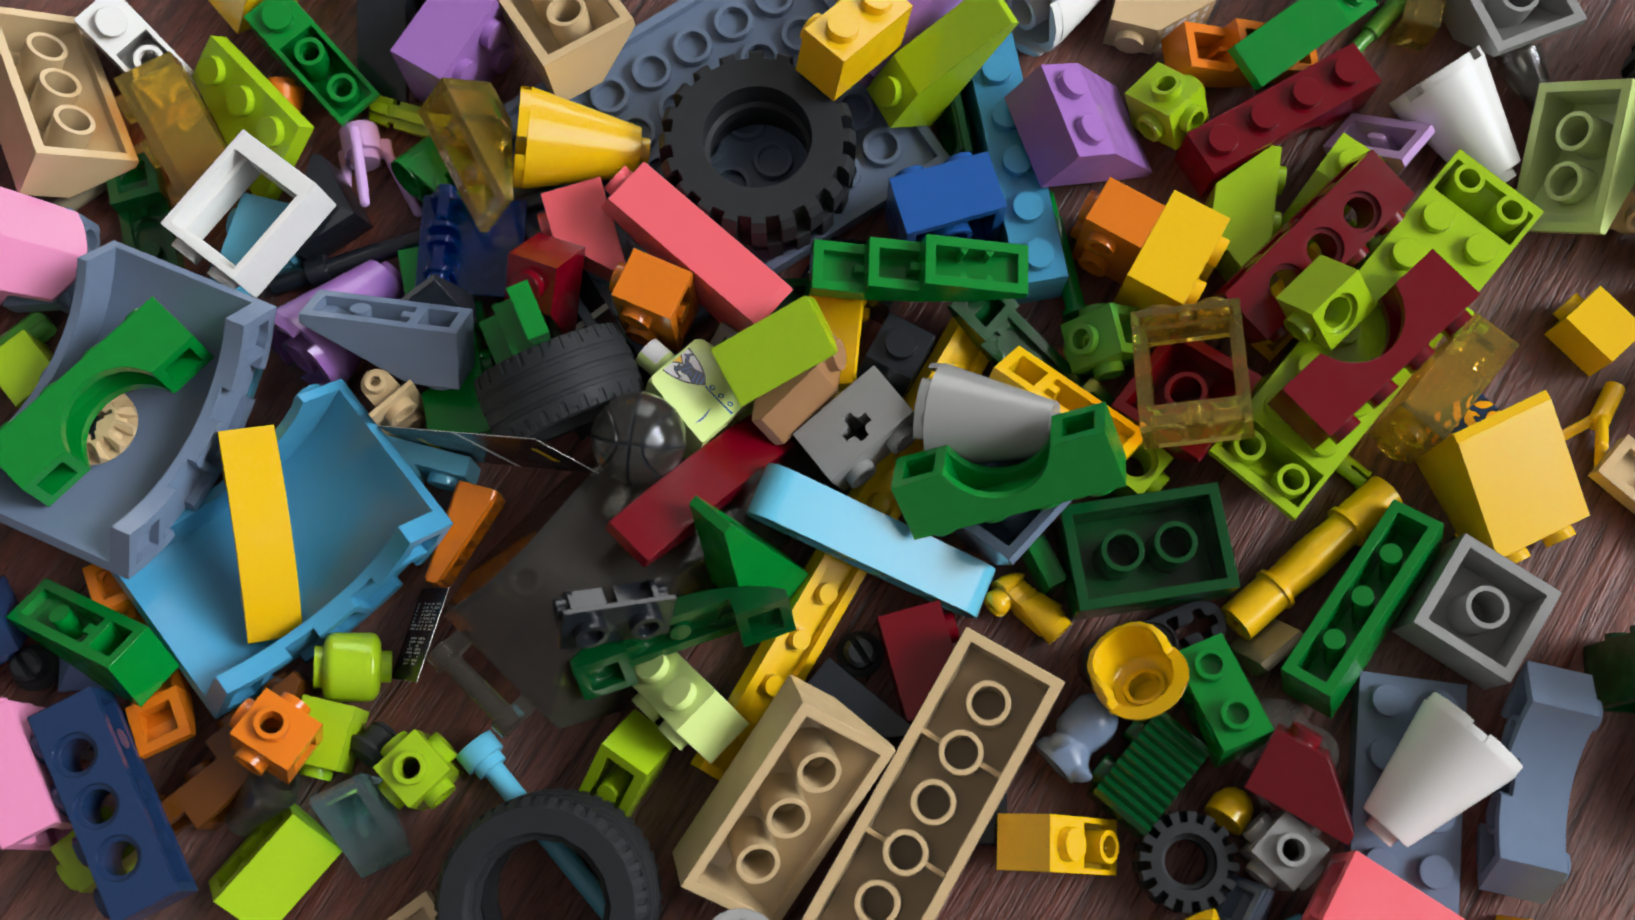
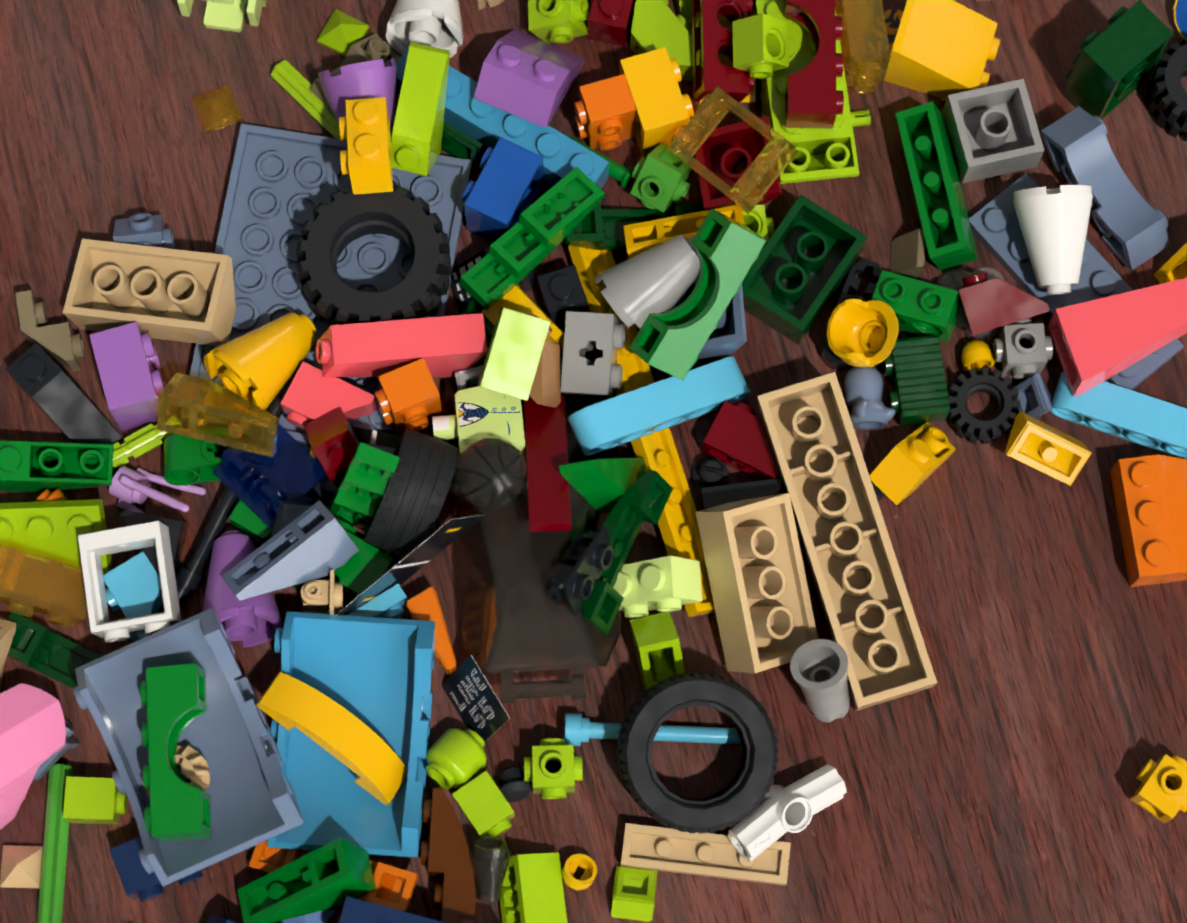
camera: 50 degrees left, 0 degrees up
(274, 734) = (468, 819): orange brick -> none
(335, 877) = (570, 867): none -> yellow hinge
(362, 823) = (555, 826): clear light blue slope -> none
(1031, 607) = (769, 359): yellow arm -> none
(1044, 566) = (760, 330): green tile -> none
(1309, 559) = (884, 187): yellow piece -> none

